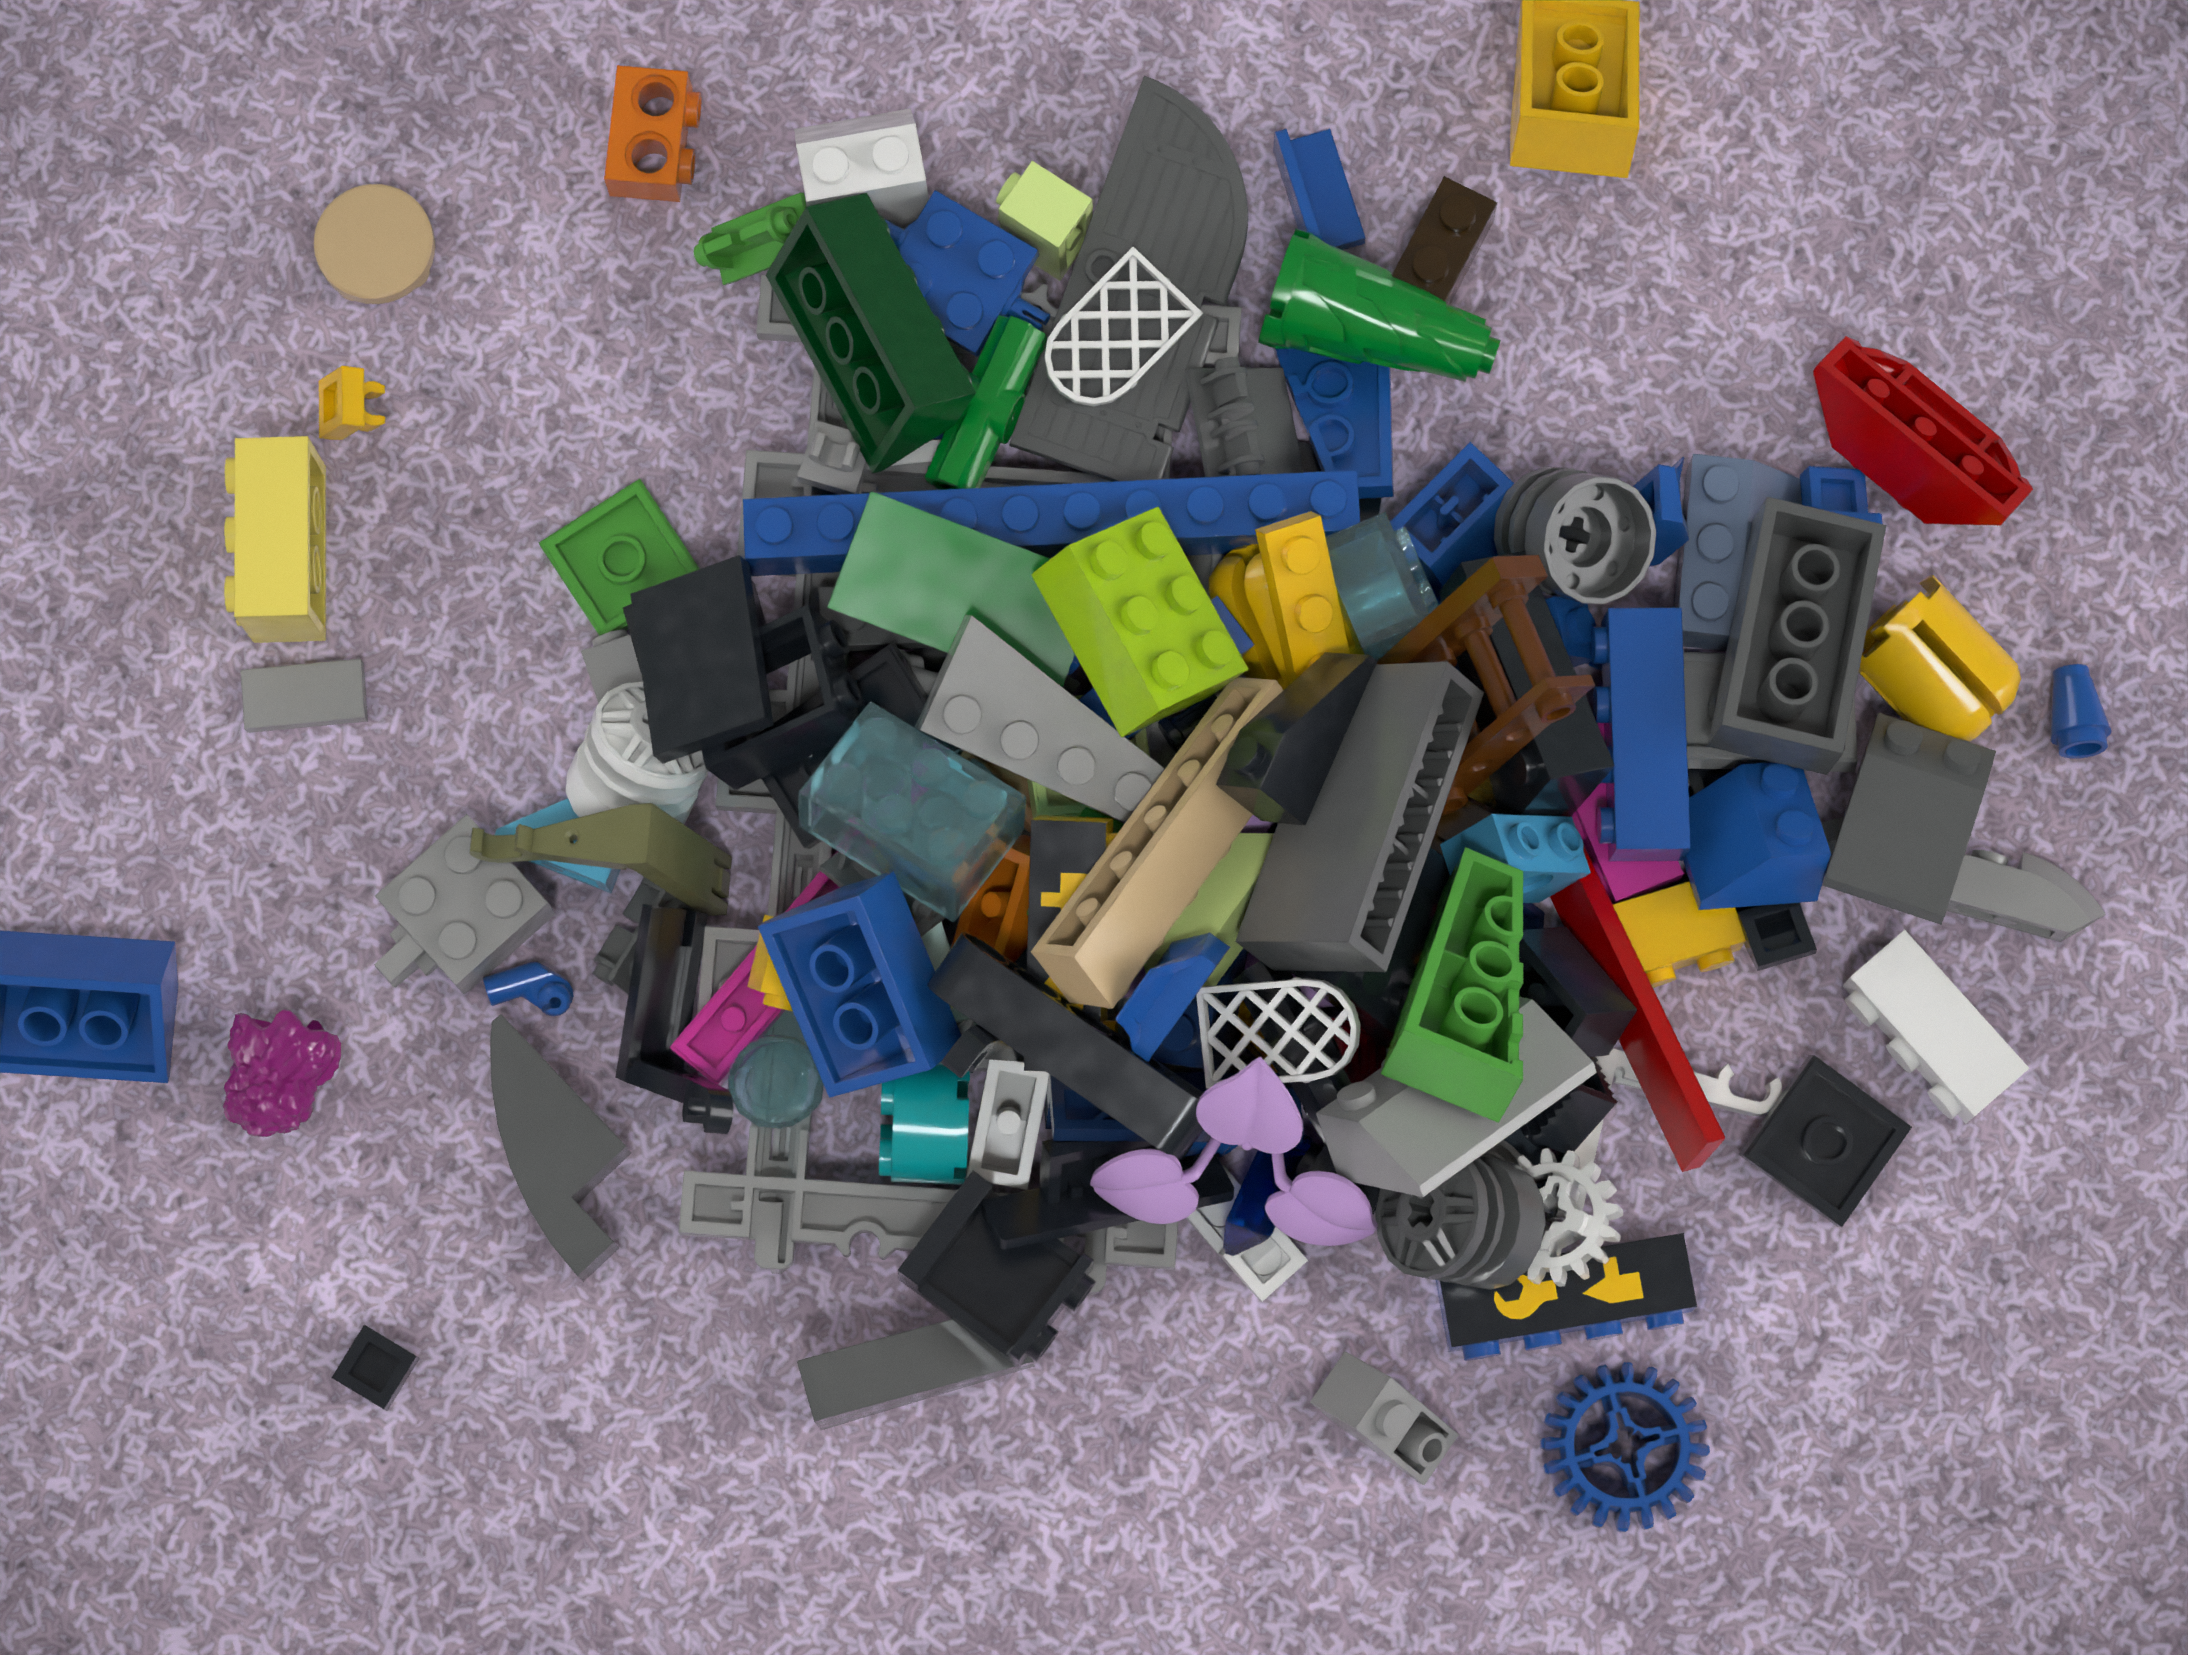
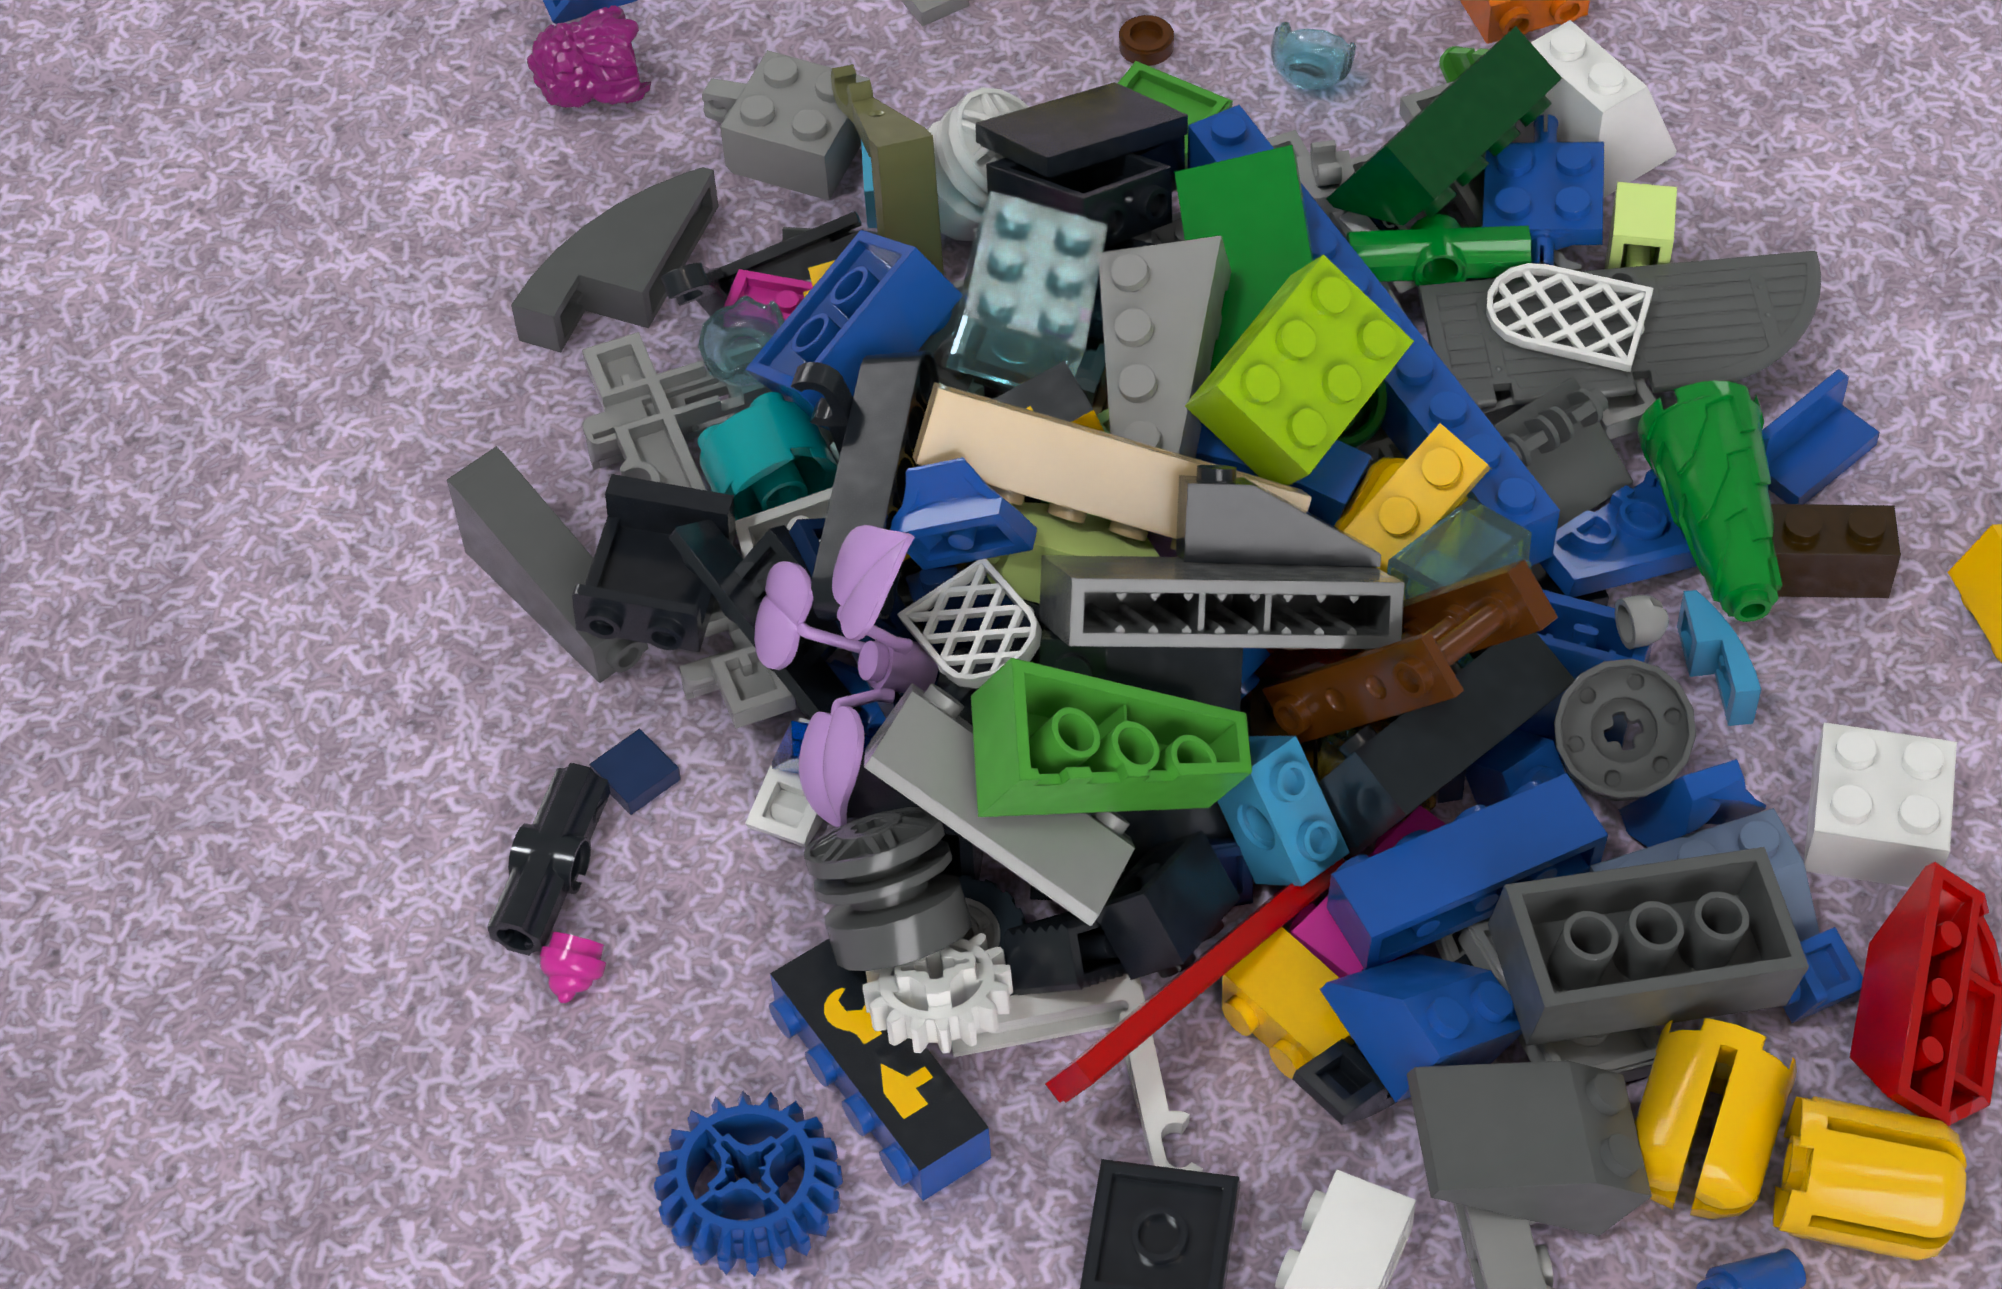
camera: 65 degrees right, 25 degrees down
(375, 1367) = (373, 227): black plate -> none
(510, 518) = (1146, 40): none -> reddish brown tile
(534, 983) = (758, 201): blue arm -> none
(631, 378) = (1311, 57): none -> clear light blue hair
(1155, 1374) = (636, 771): none -> dark blue tile
(1221, 1485) = (549, 859): none -> black piece
(1336, 1507) = (562, 964): none -> dark pink plate
(1384, 1417) = (677, 964): light grey slope -> none
(1480, 463) = (1640, 620): none -> light grey hinge
(1481, 400) = (1715, 648): none -> dark azure slope
(1711, 361) = (1879, 804): none -> white brick
(2045, 576) = (1870, 1179): none -> yellow cylinder

